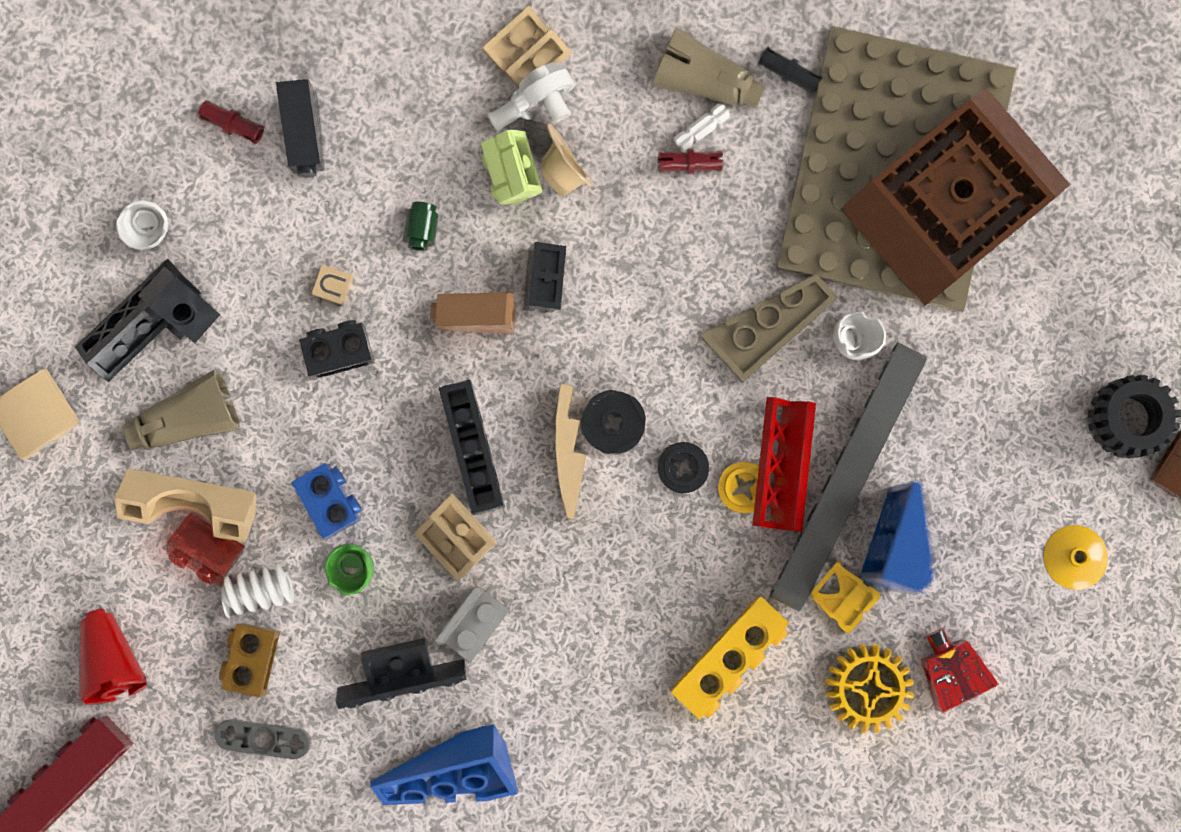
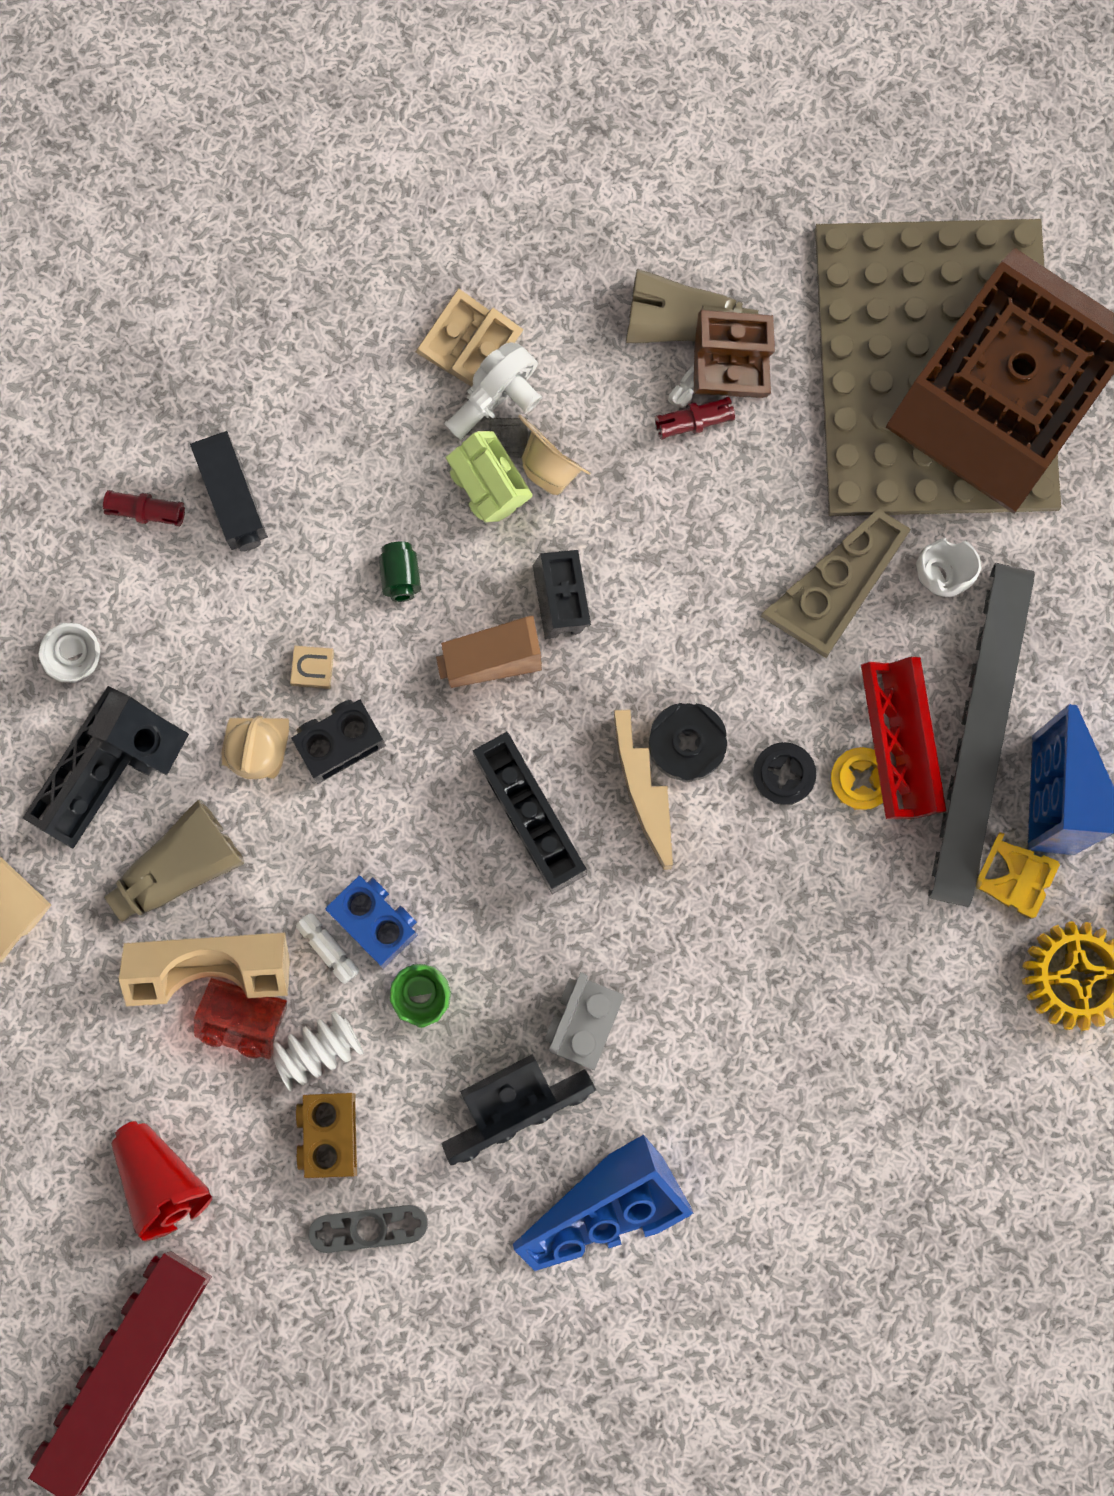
camera: 10 degrees left, 5 degrees down
(272, 337) = (255, 746): none -> tan piece
(287, 512) = (327, 948): none -> white axle
(455, 537) = (538, 923): tan slope -> none
(688, 688) = (863, 1032): yellow brick -> none
(734, 117) = (733, 354): none -> reddish brown slope
(790, 70) = (781, 286): black pin -> none

